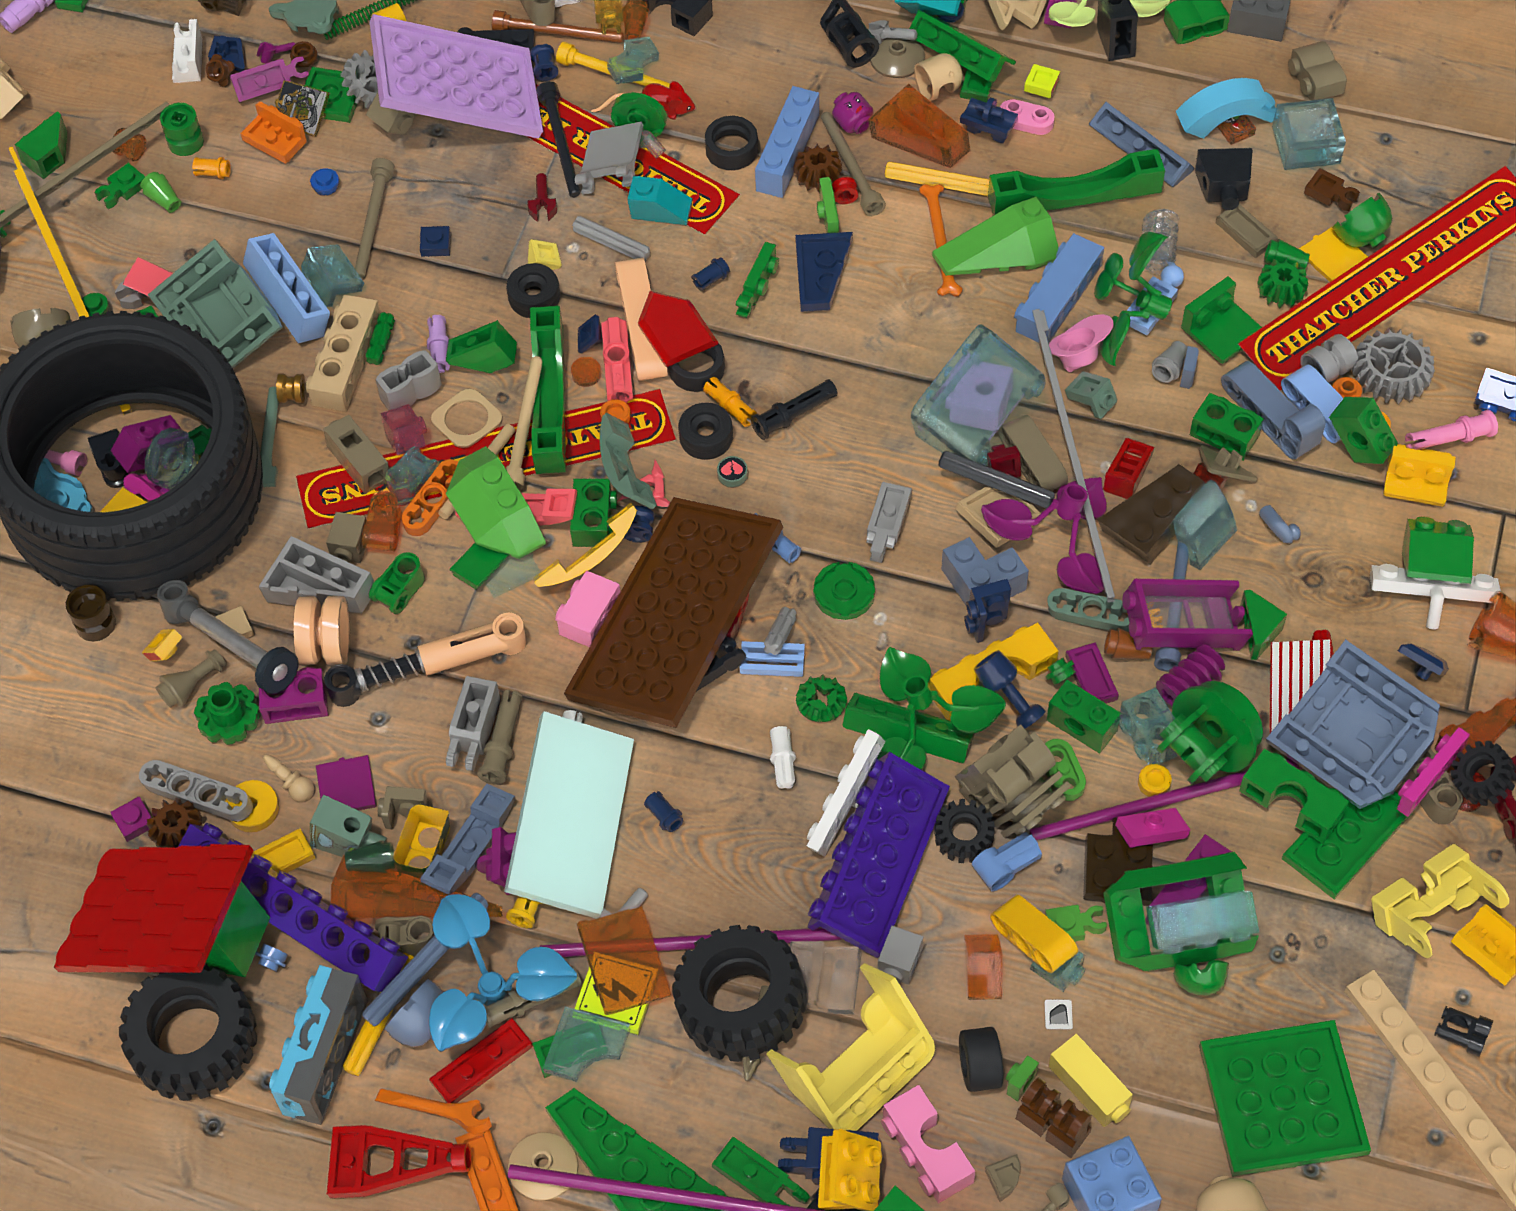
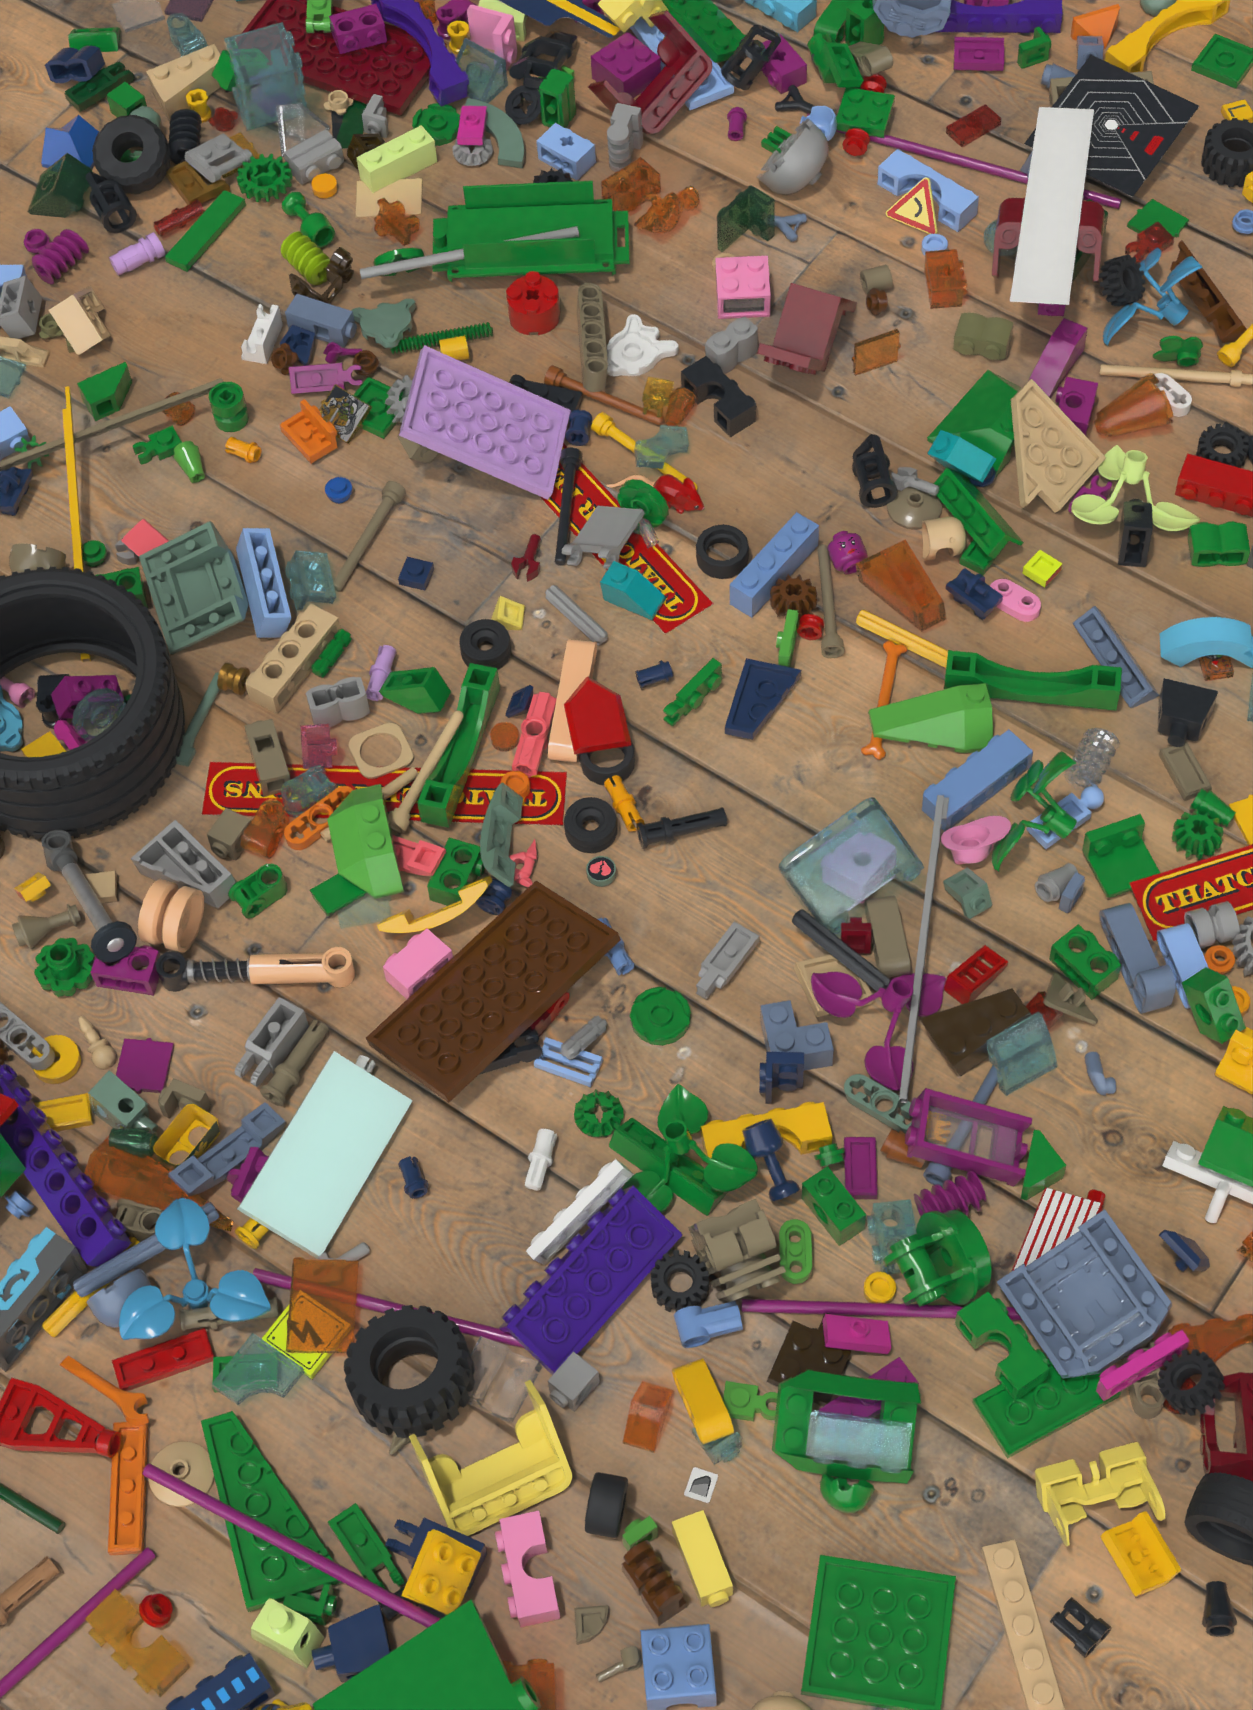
camera: 20 degrees right, 0 degrees up
(246, 22) = (325, 320): none -> sand blue brick

